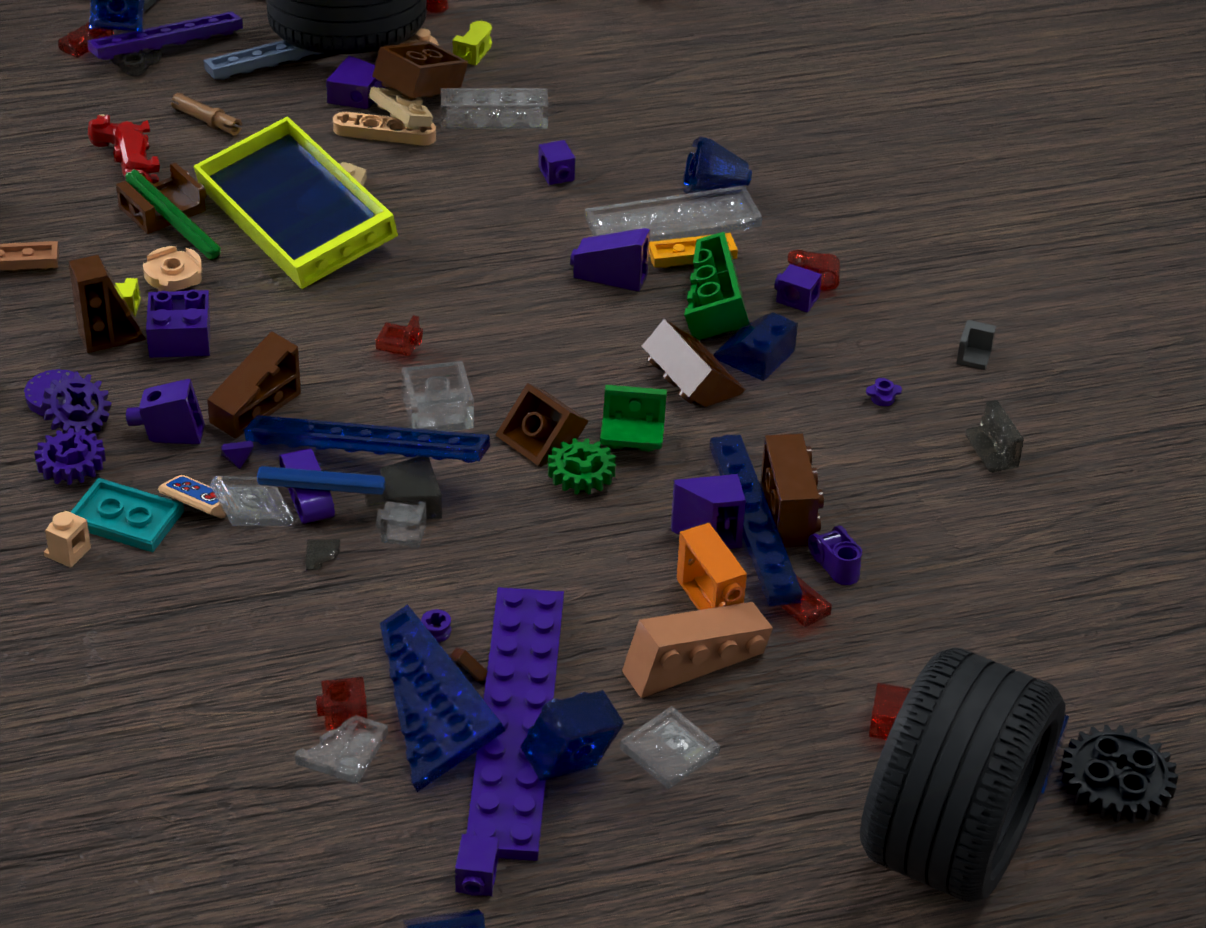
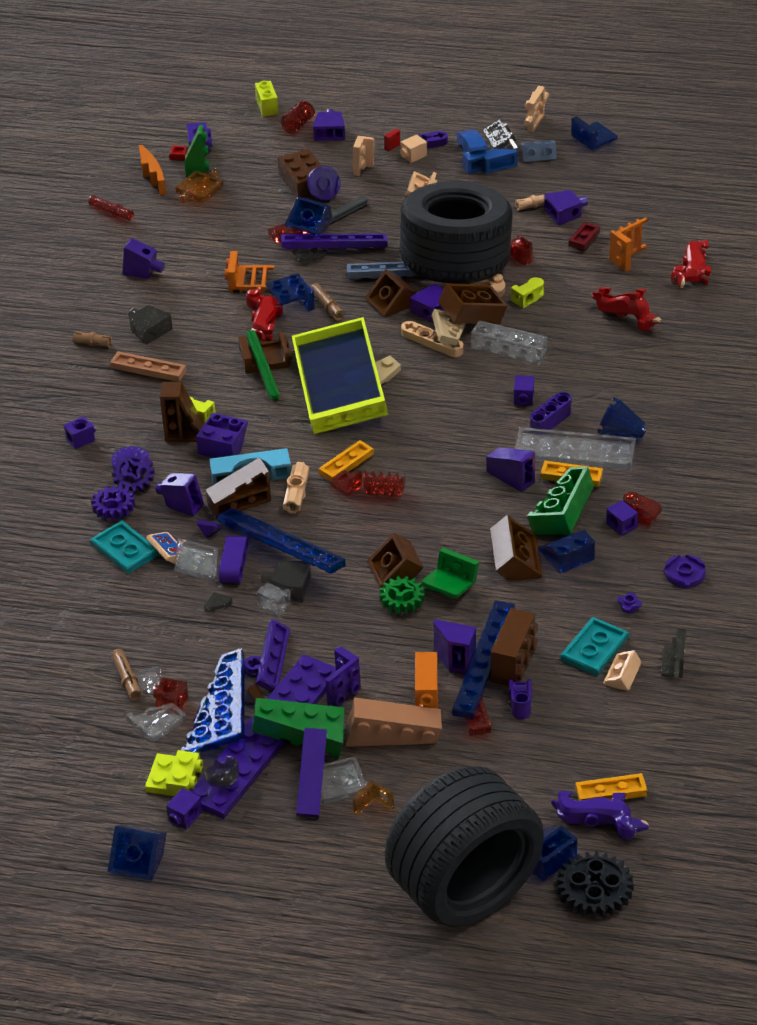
camera: 30 degrees right, 0 degrees up
(53, 110) = (237, 273): none -> orange plate
(62, 534) = (78, 547): light nougat brick -> none
(153, 106) = (292, 289): none -> clear blue bracket
(185, 271) = (252, 401): light nougat plate -> none
(216, 362) = (275, 461): none -> medium azure arch
(263, 703) = (128, 679): none -> medium nougat pin
(291, 84) = (390, 294): none -> reddish brown slope
(299, 693) = (149, 679): none -> clear bracket
(321, 480) = (236, 558): blue axle -> none
(332, 364) = (296, 488): none -> light nougat piece
(376, 311) = (346, 460): none -> light orange plate
(424, 819) = (173, 773): none -> neon yellow plate
(438, 397) = (341, 527): clear brick -> none
(454, 324) = (384, 484): none -> clear red piece
(456, 602) = (273, 655): none -> dark purple tile
(511, 790) = (222, 773): none -> clear smoke hair
(530, 683) = (289, 719): none -> green wedge
(571, 734) = (276, 752): clear blue brick -> none
(586, 594) = (346, 678): none -> dark purple bracket
(613, 179) = (552, 412): none -> dark purple beam
(618, 27) = (627, 304): none -> red animal
(639, 752) = (311, 772): none -> dark purple tile
(735, 751) = (368, 794): none -> clear orange bracket
(879, 460) = (594, 646): none -> teal tile
(920, 333) = (685, 571): none -> dark purple tile
(936, 480) = (623, 670): none -> light nougat slope
(976, 344) = (712, 589): dark grey panel -> none
(1041, 638) = (631, 785): none -> light orange plate
(1075, 668) = (599, 812): none -> dark purple animal

